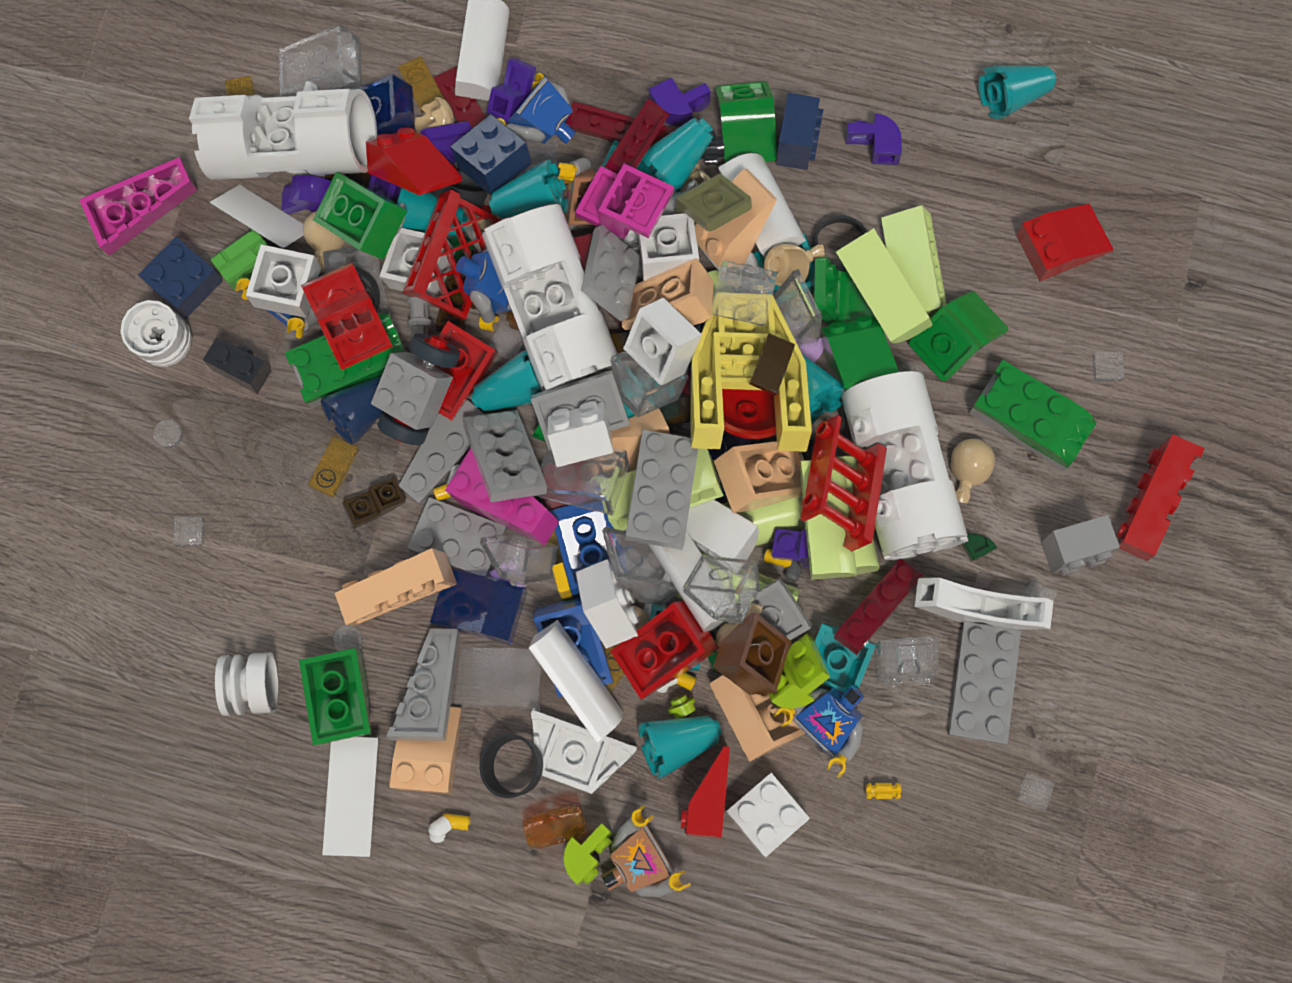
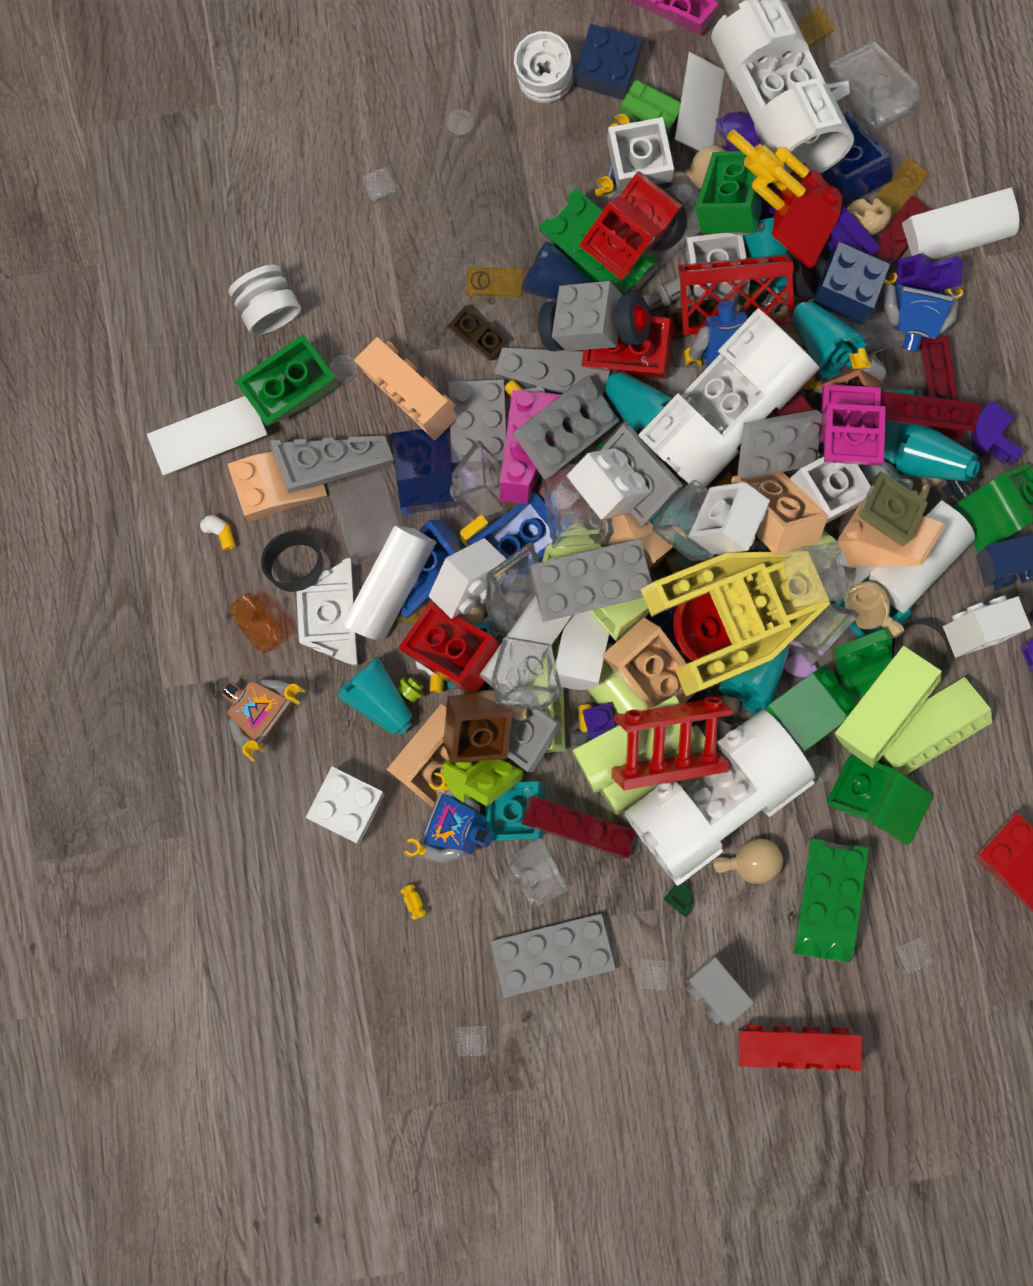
camera: 65 degrees right, 5 degrees up
(237, 364) = (549, 152): black brick -> none
(359, 169) = (769, 169): none -> yellow plant
(579, 857) = (237, 657): lime brick -> none
(707, 805) = (328, 748): red slope -> none
(772, 364) = (752, 627): dark brown slope -> none
(847, 177) = (986, 625): none -> white brick
(977, 605) = (619, 921): white arch -> none

